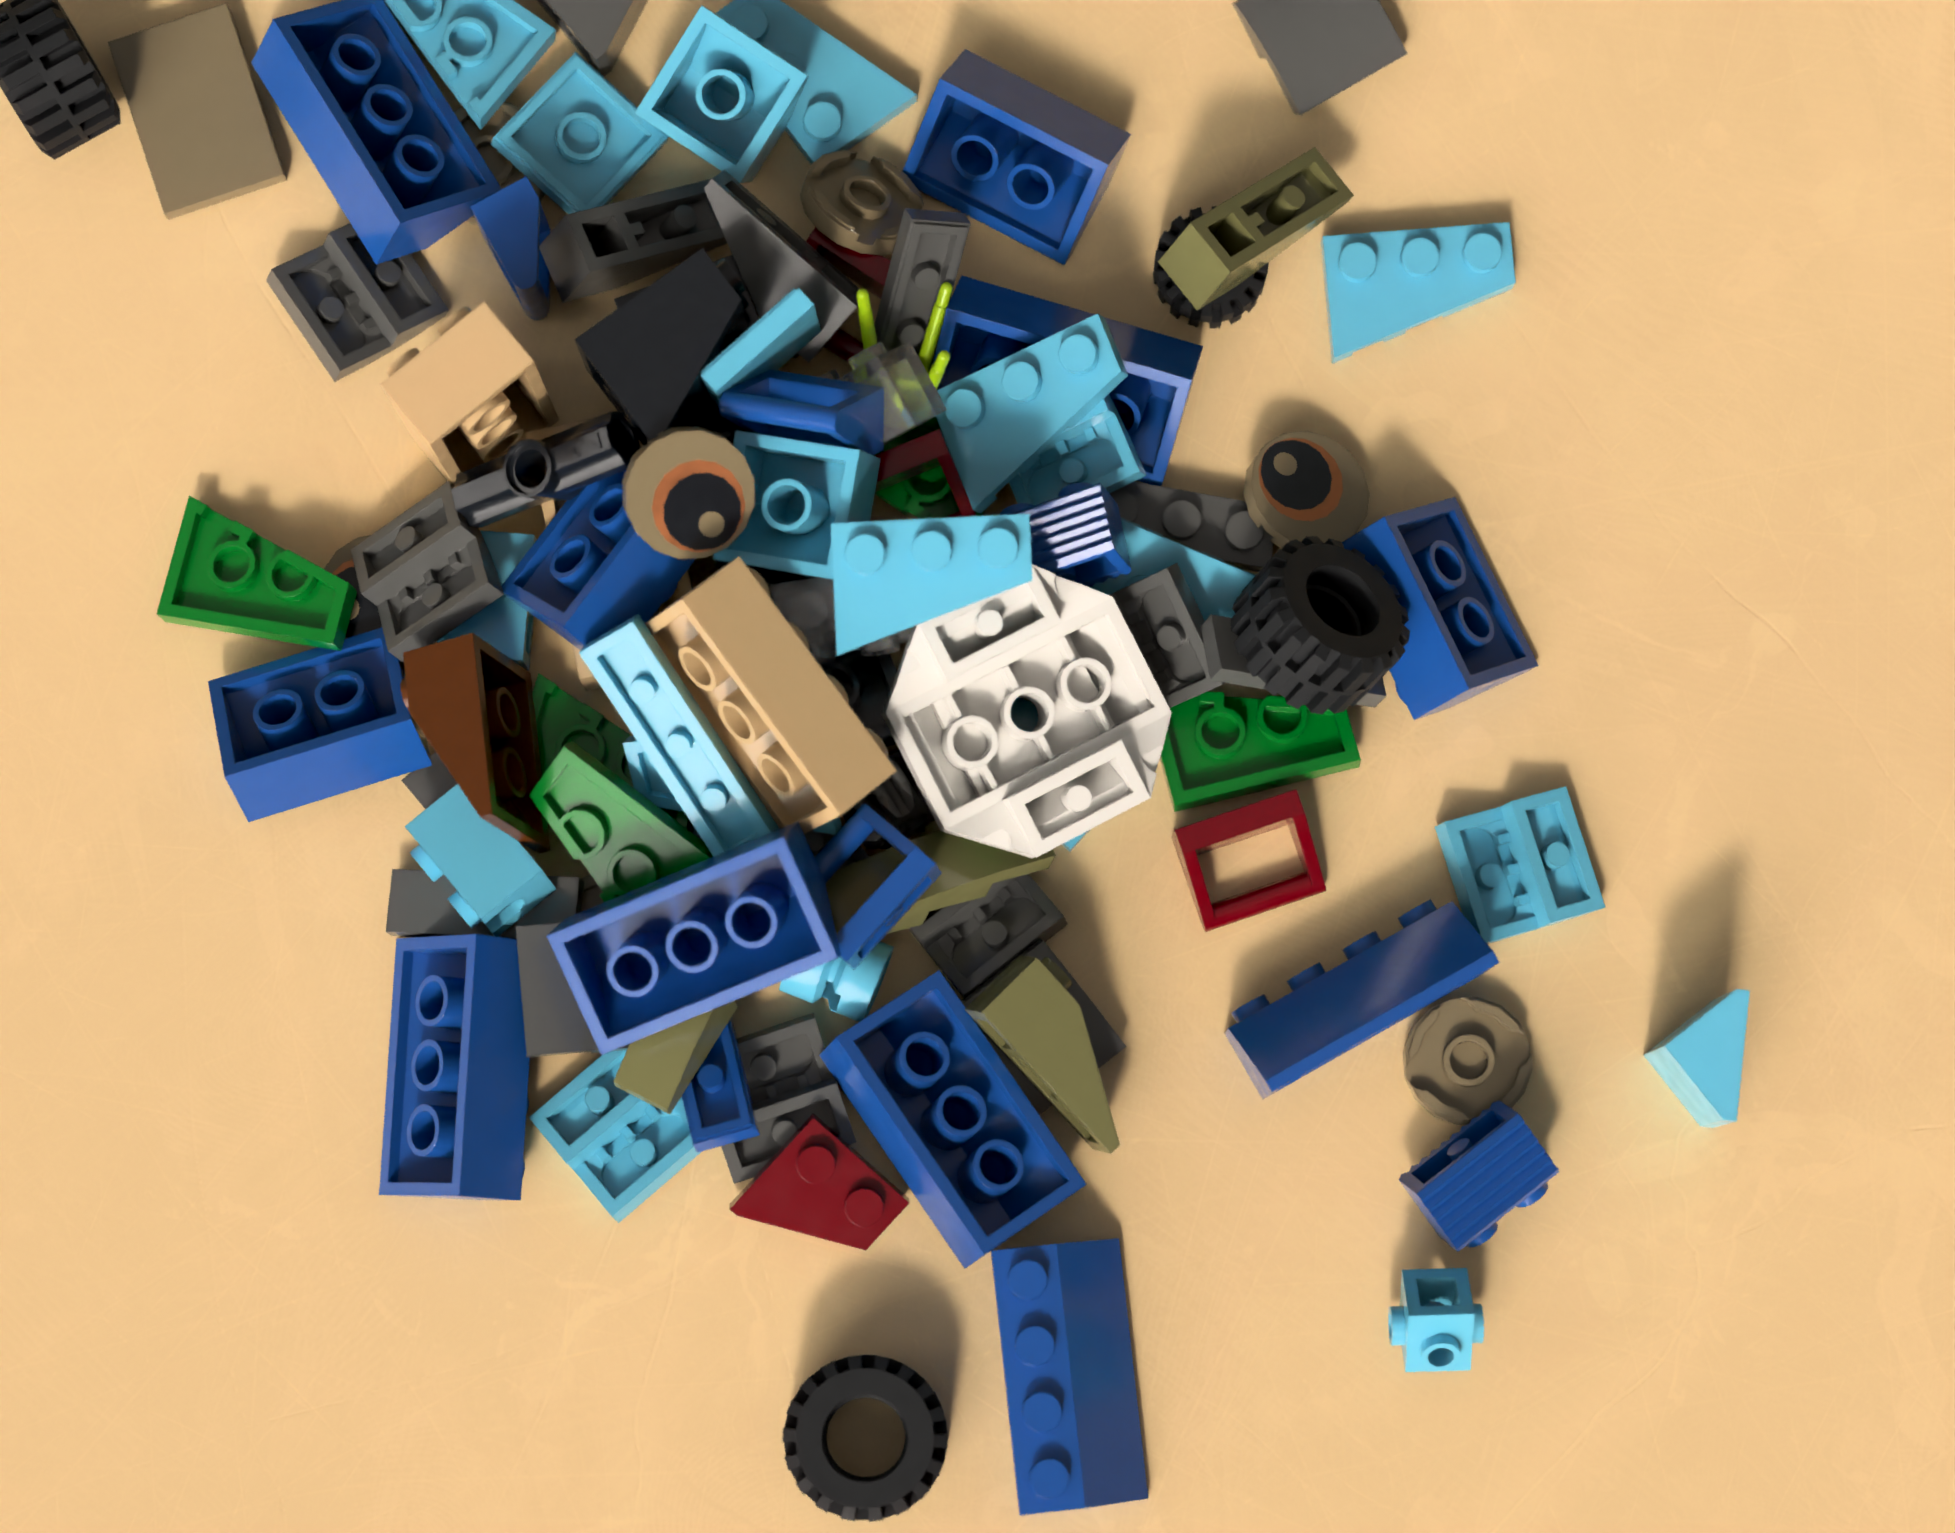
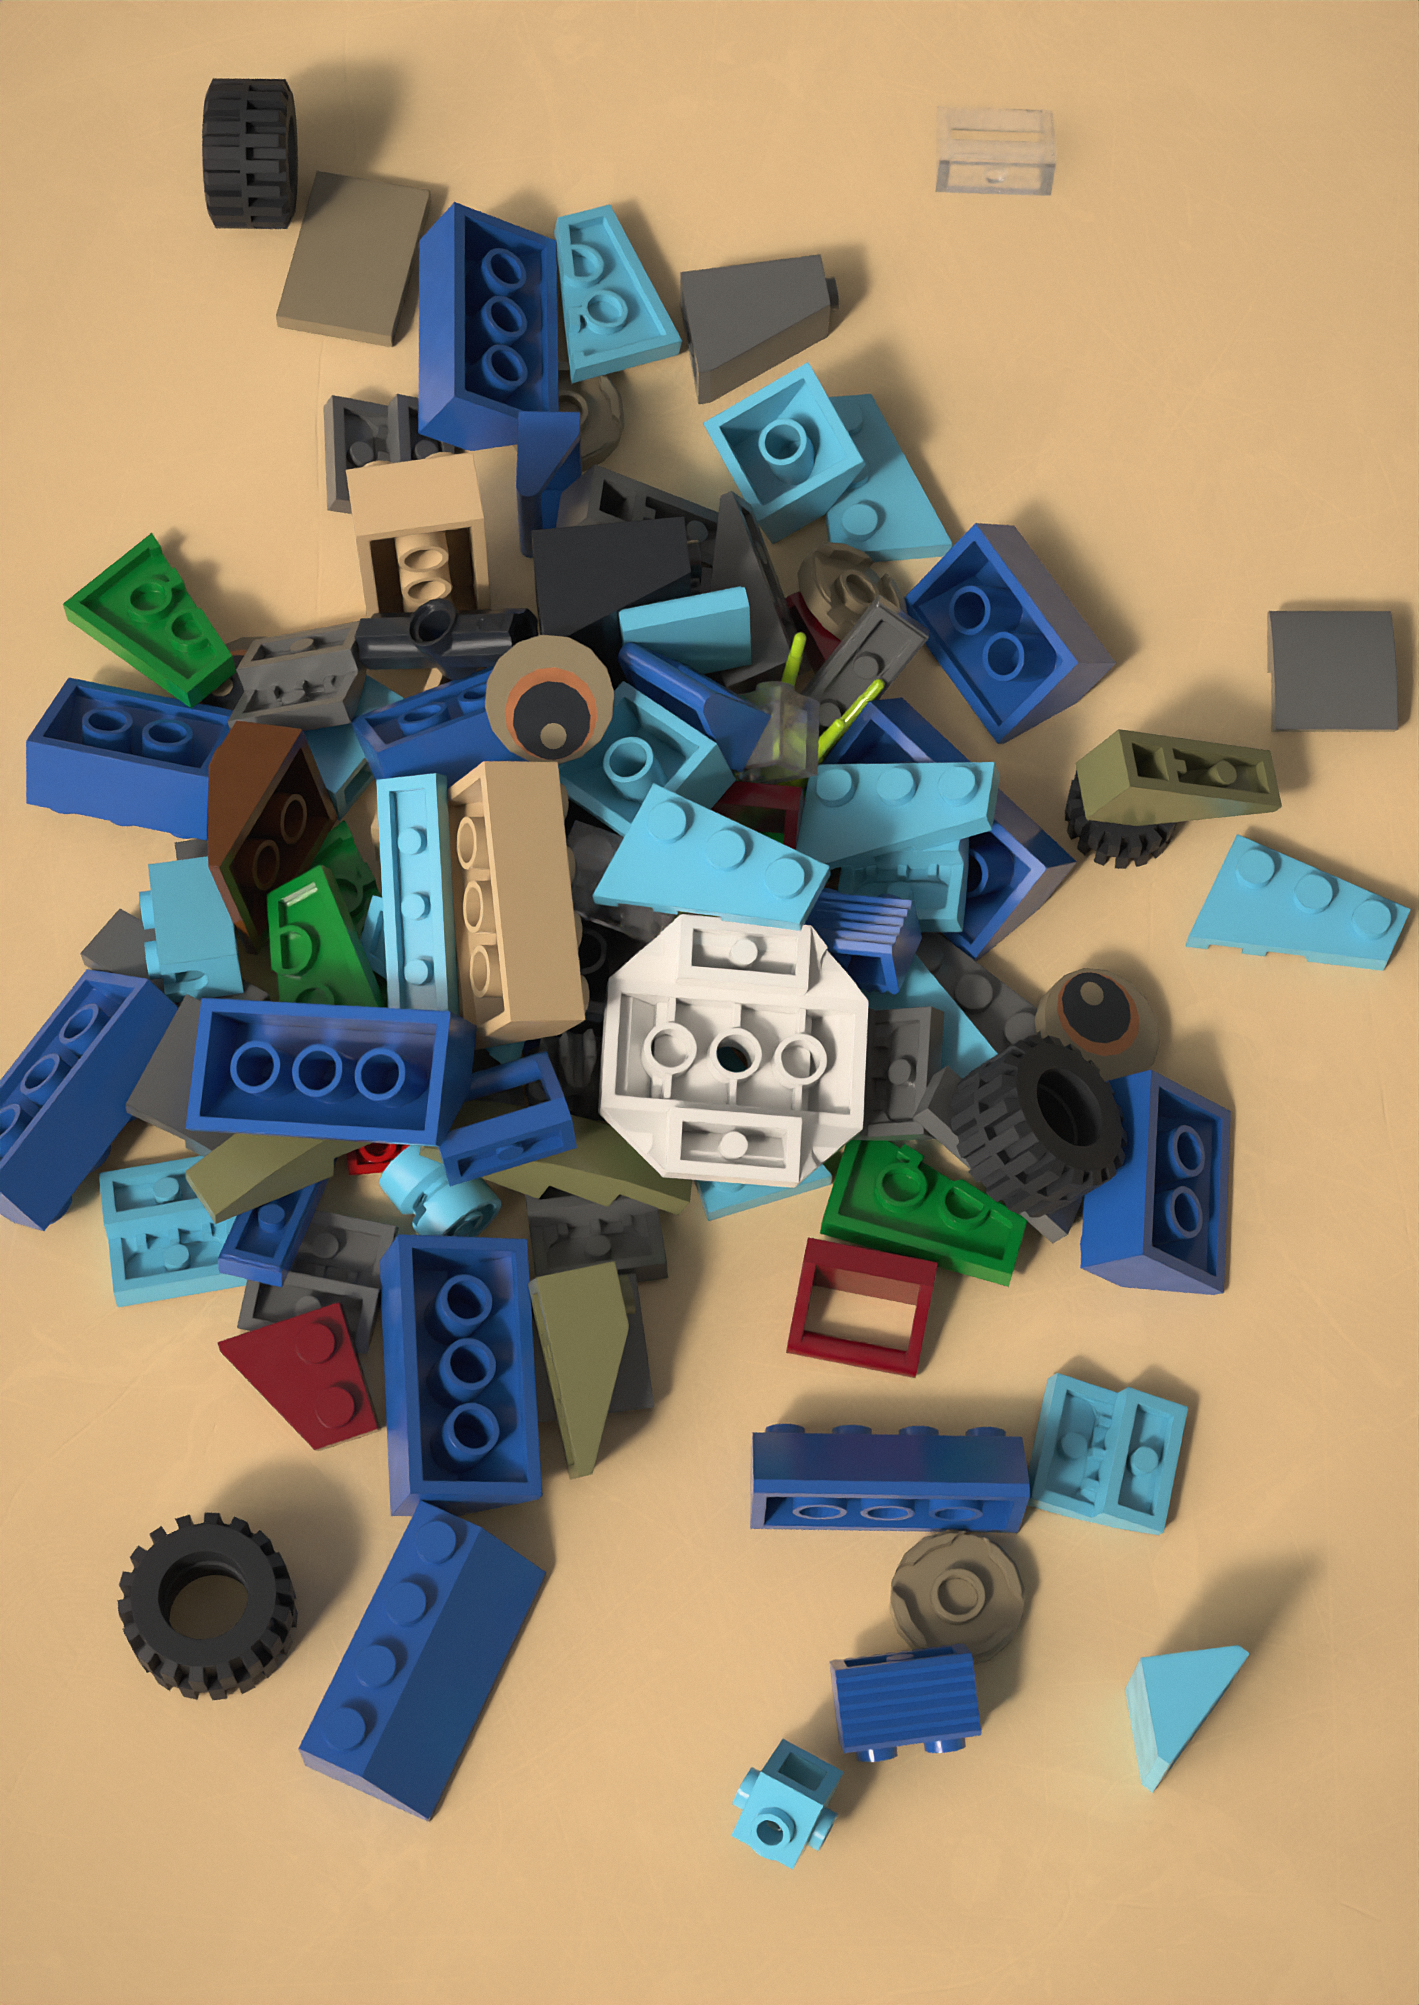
camera: 30 degrees right, 15 degrees down
(578, 138) = (650, 429): medium azure tile -> none

